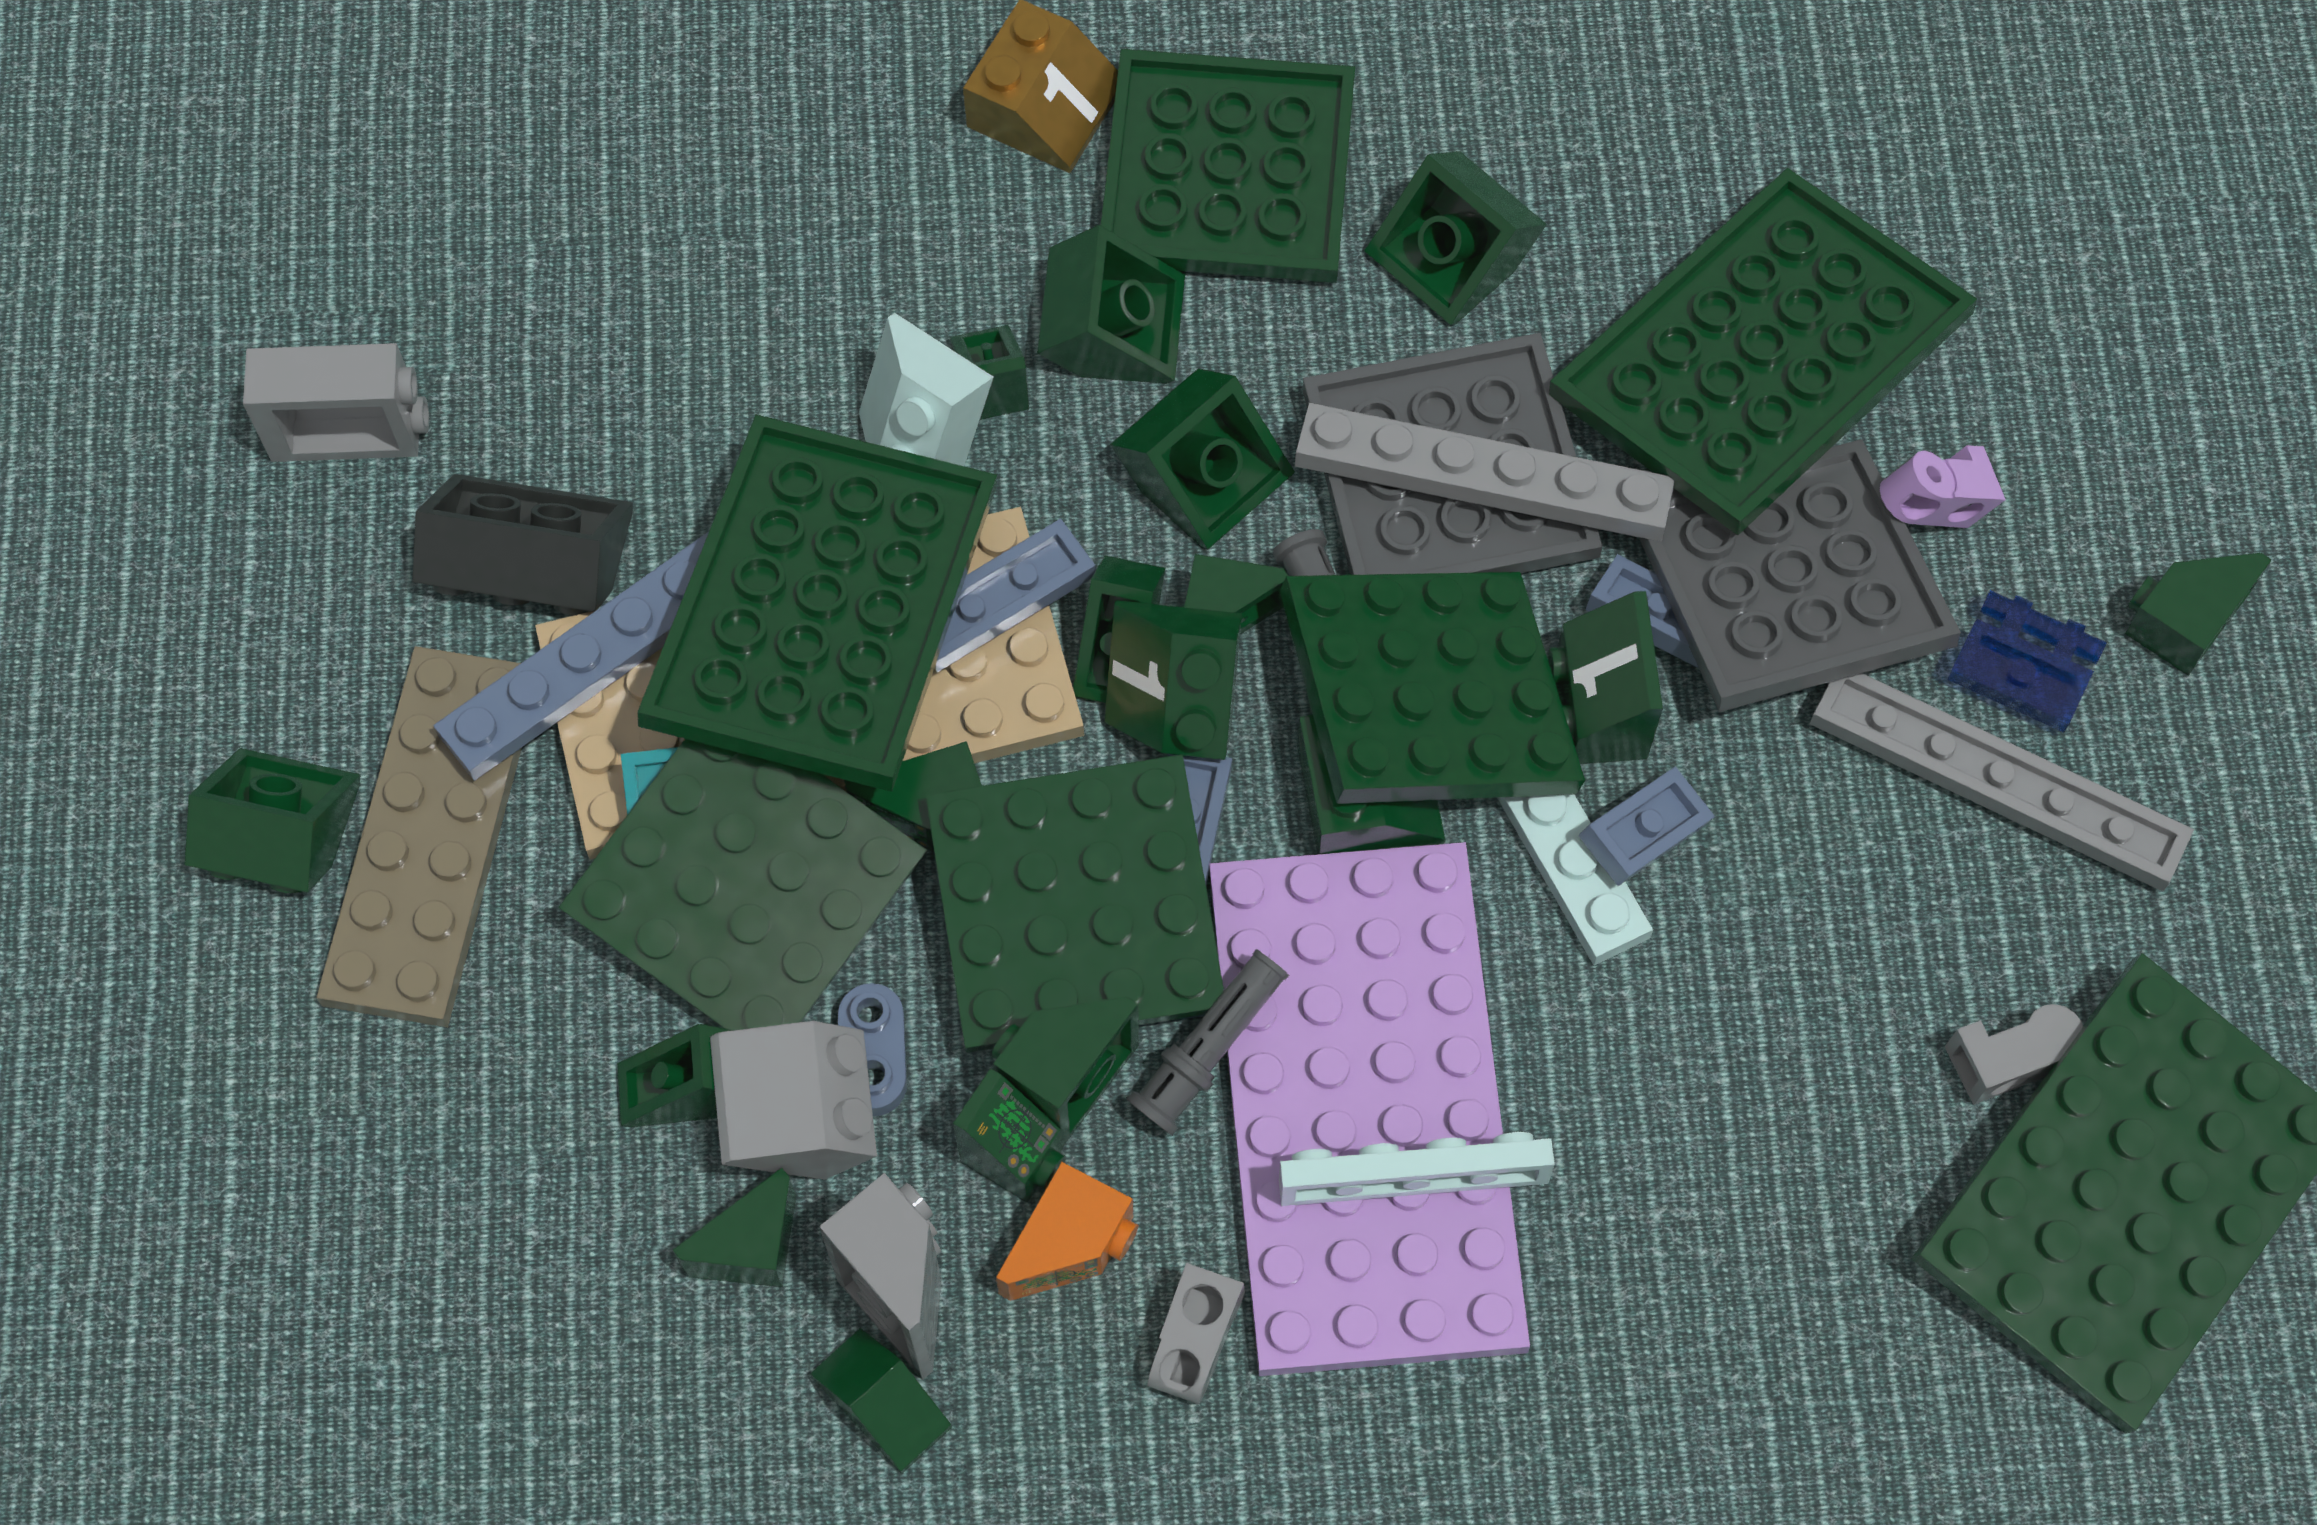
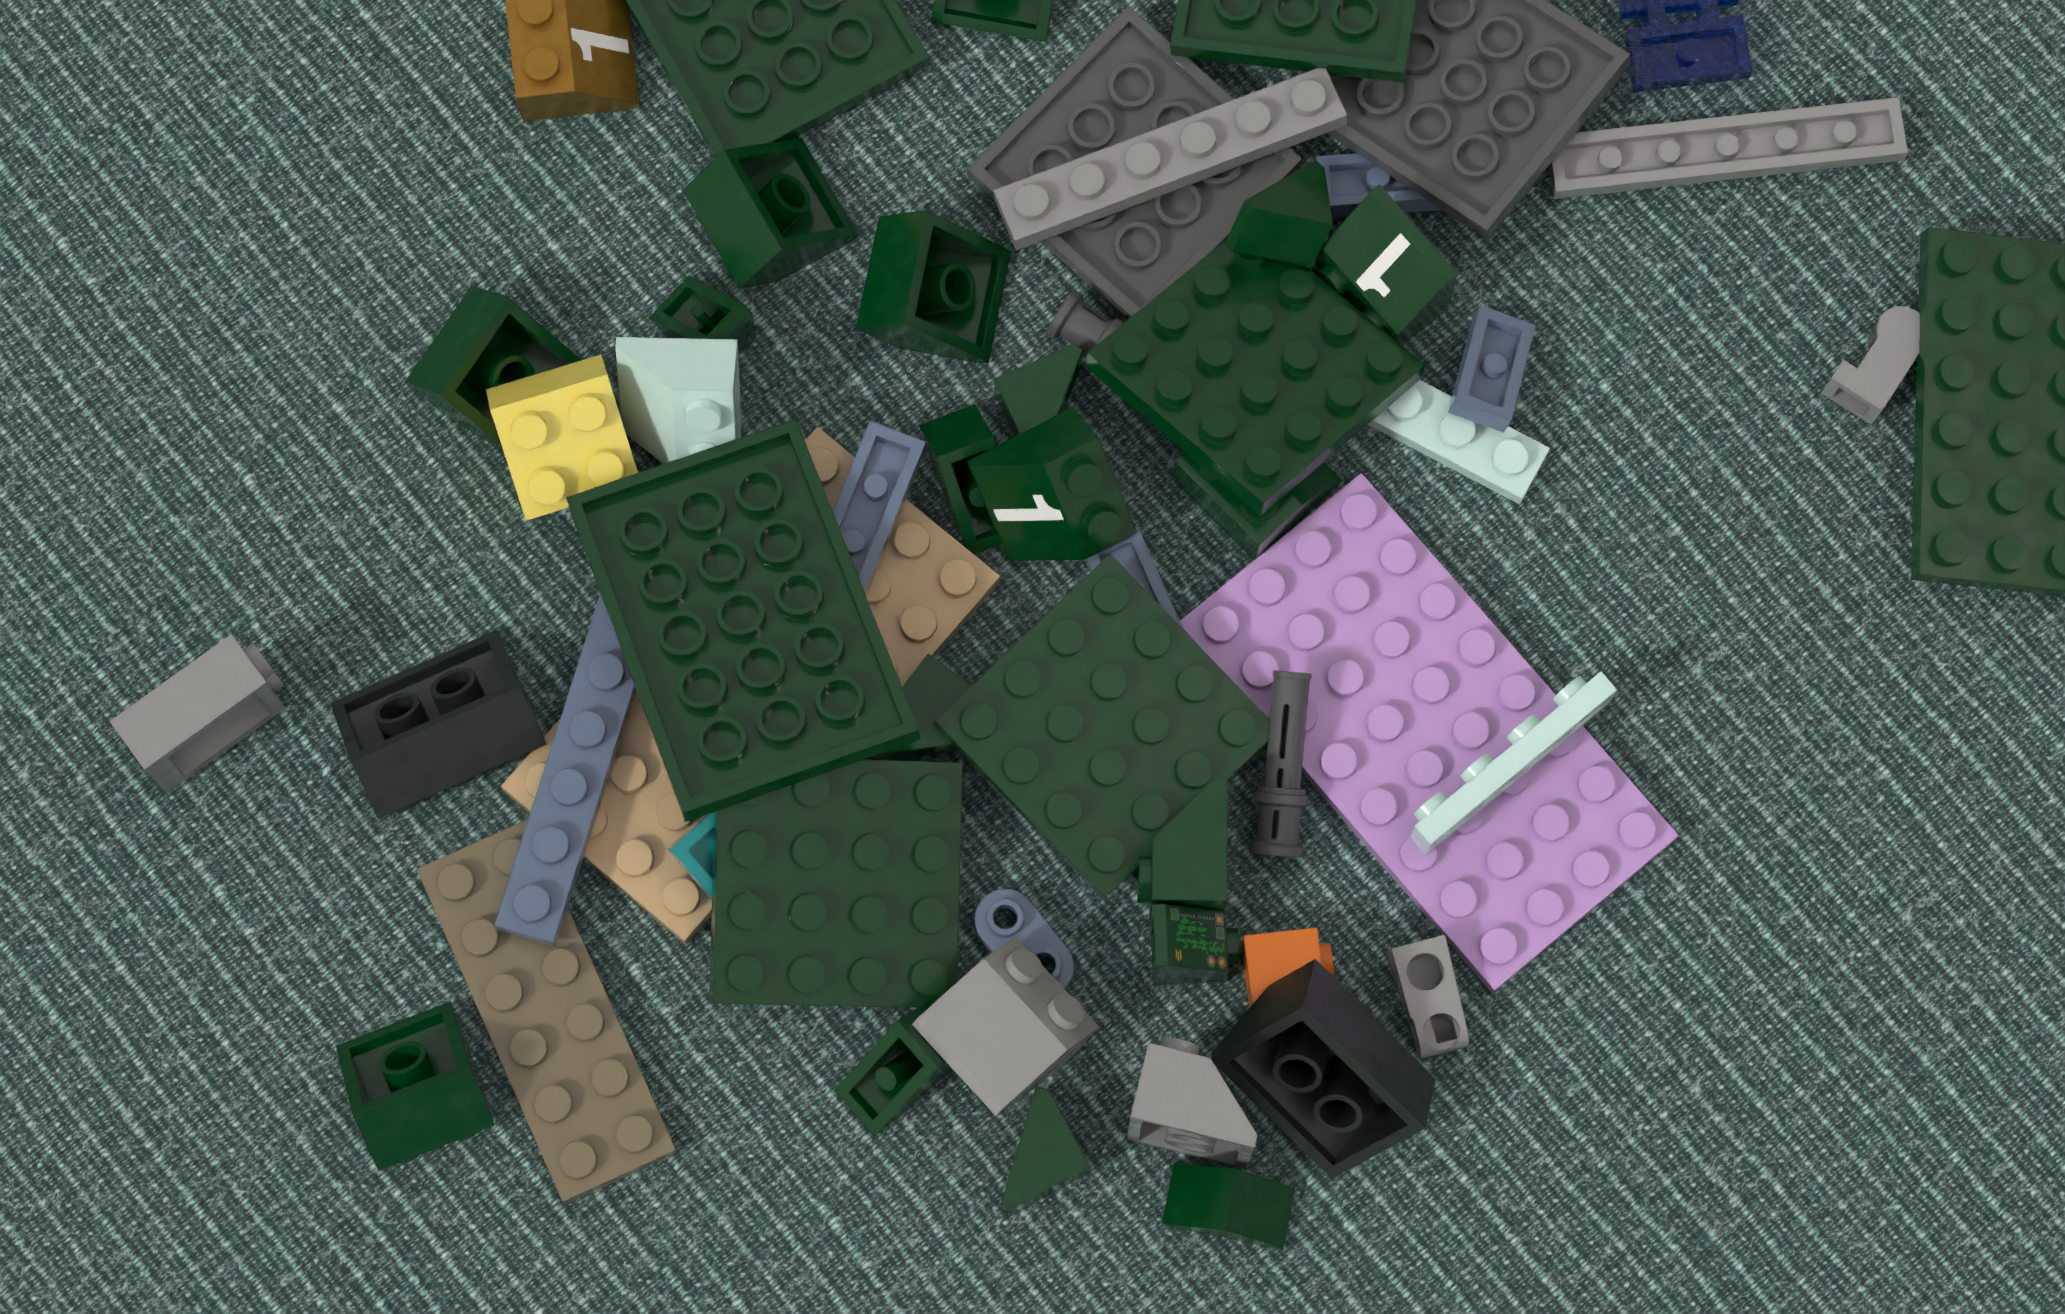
camera: 35 degrees left, 10 degrees up
(789, 298) = (480, 348): none -> dark green slope
(796, 367) = (560, 434): none -> light yellow brick
(1046, 1329) = (1326, 1070): none -> pearl dark grey slope
(1544, 577) = (1286, 219): none -> dark green slope

